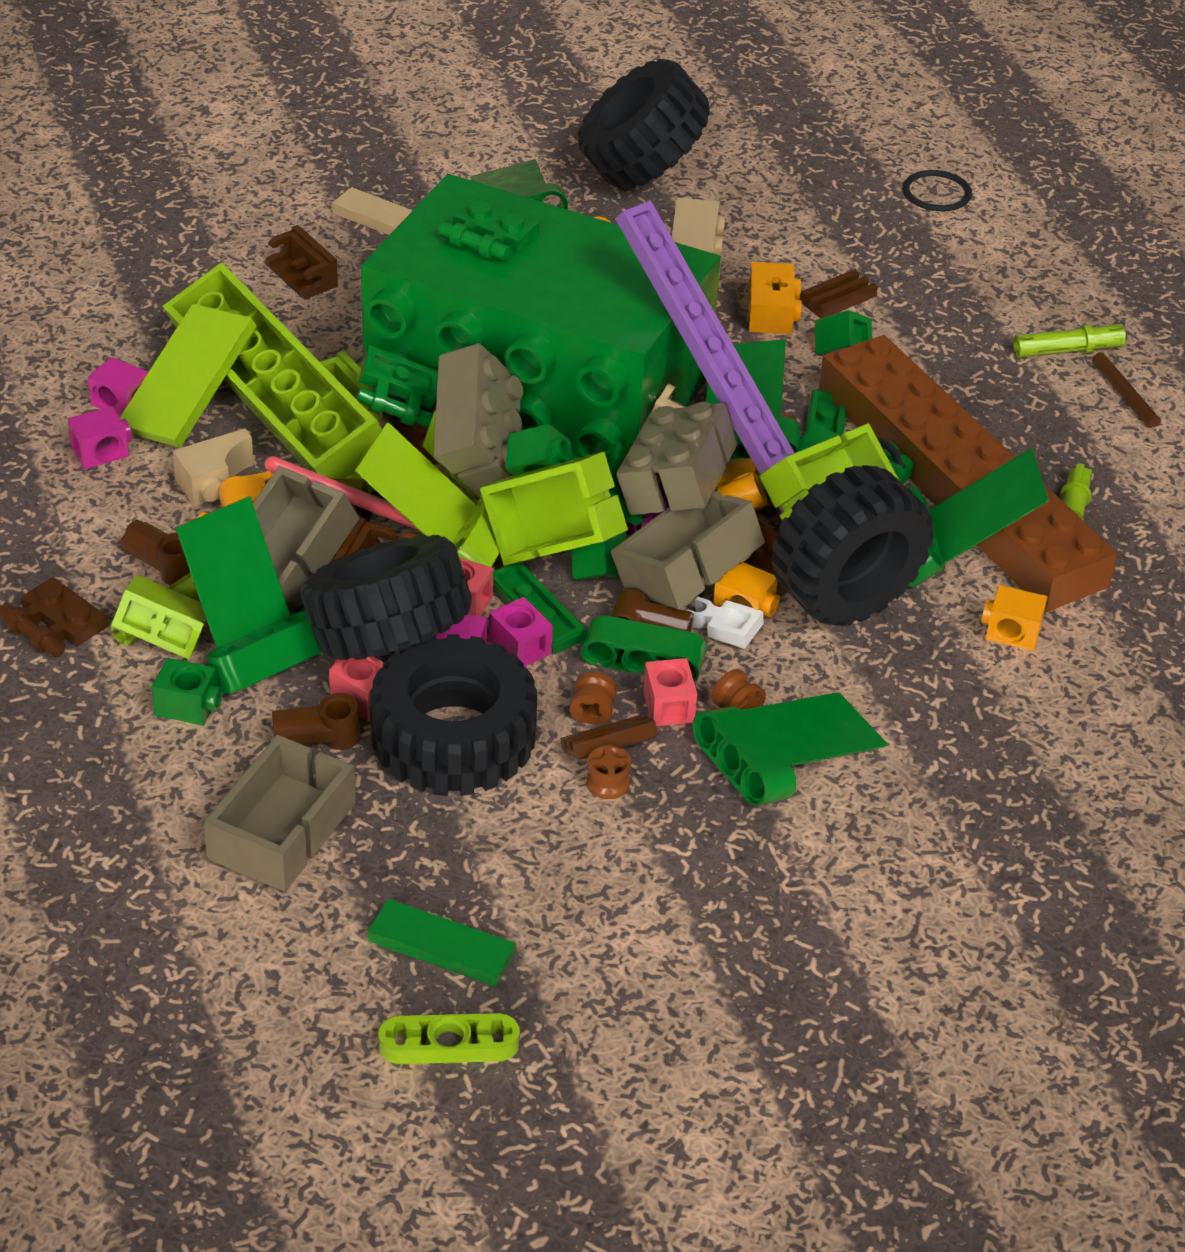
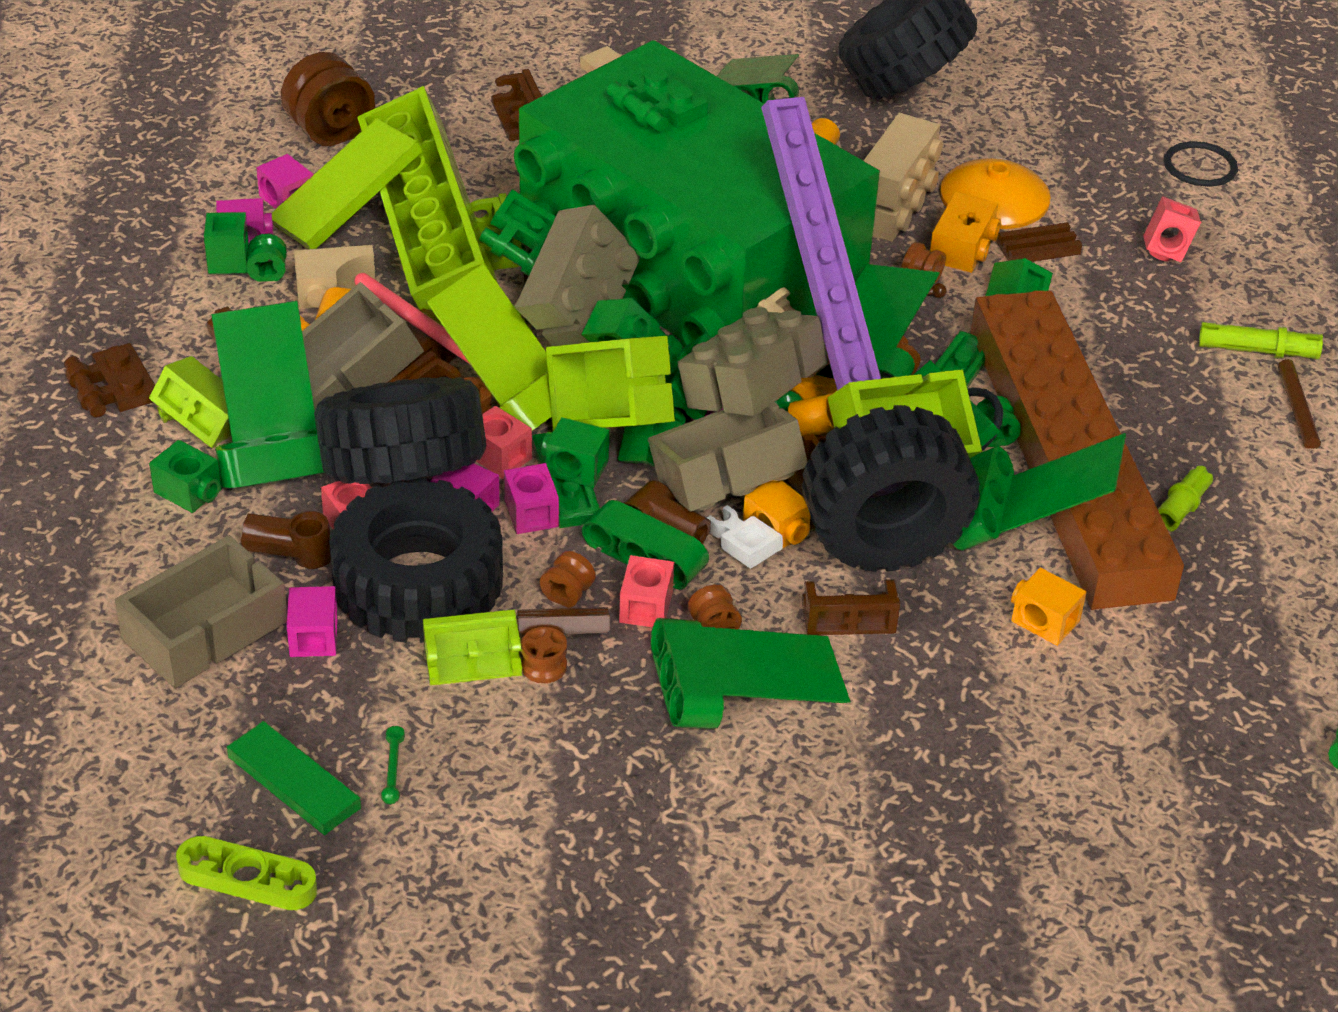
camera: 20 degrees right, 0 degrees up
(99, 457) = (226, 242): none -> green brick
(120, 294) = (326, 98): none -> reddish brown wheel
(141, 464) = (265, 248): none -> green wheel
(384, 796) = (312, 621): none -> dark pink brick
(511, 880) = (394, 736): none -> green hinge
(541, 782) = (472, 647): none -> lime hinge
(544, 579) = (576, 451): none -> green brick
(751, 331) = (920, 258): none -> dark orange wheel
(776, 244) = (1016, 189): none -> light orange dish
(853, 665) = (850, 612): none -> reddish brown hinge
(943, 246) = (1168, 215): none -> coral brick

